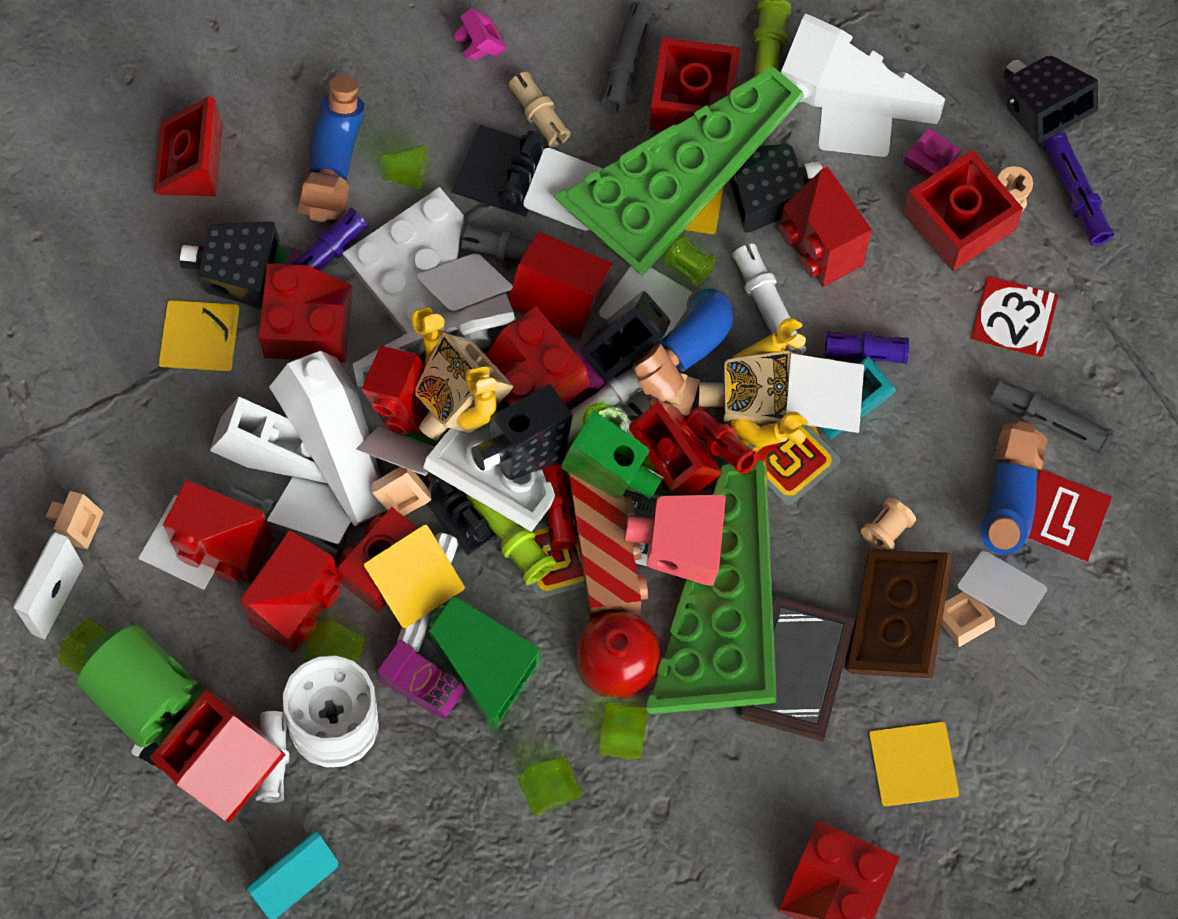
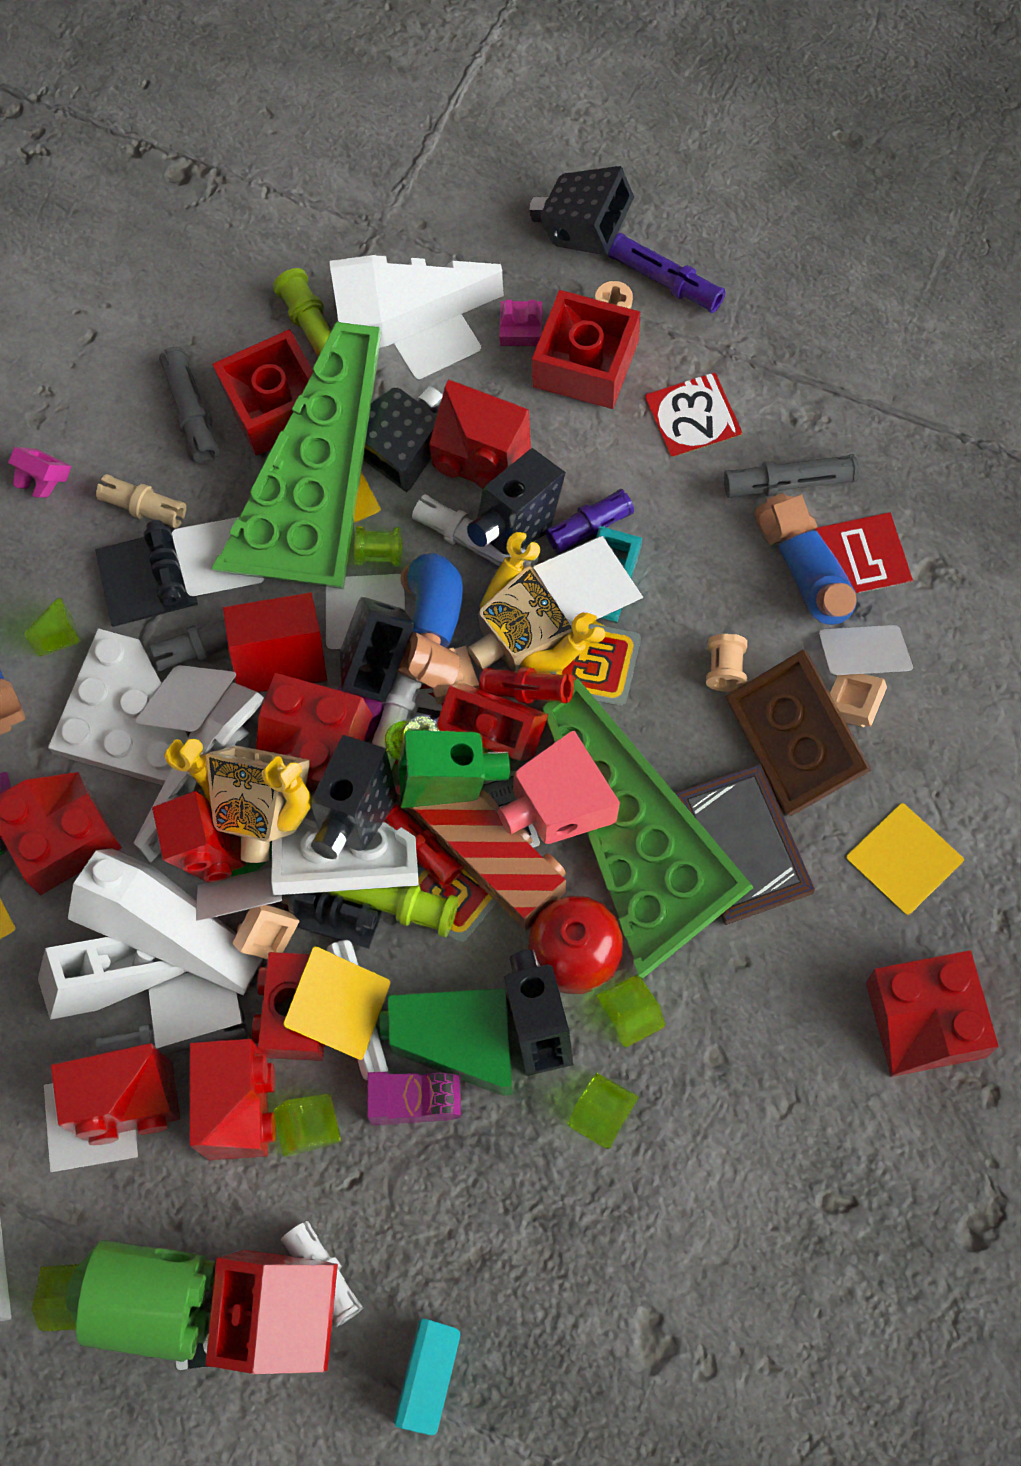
camera: 30 degrees left, 0 degrees up
(327, 688) = (347, 1160): white wheel -> none
(333, 241) = (31, 742): dark purple pin -> none
(549, 684) = (538, 1014): none -> black torso
(814, 296) = (518, 501): none -> black torso

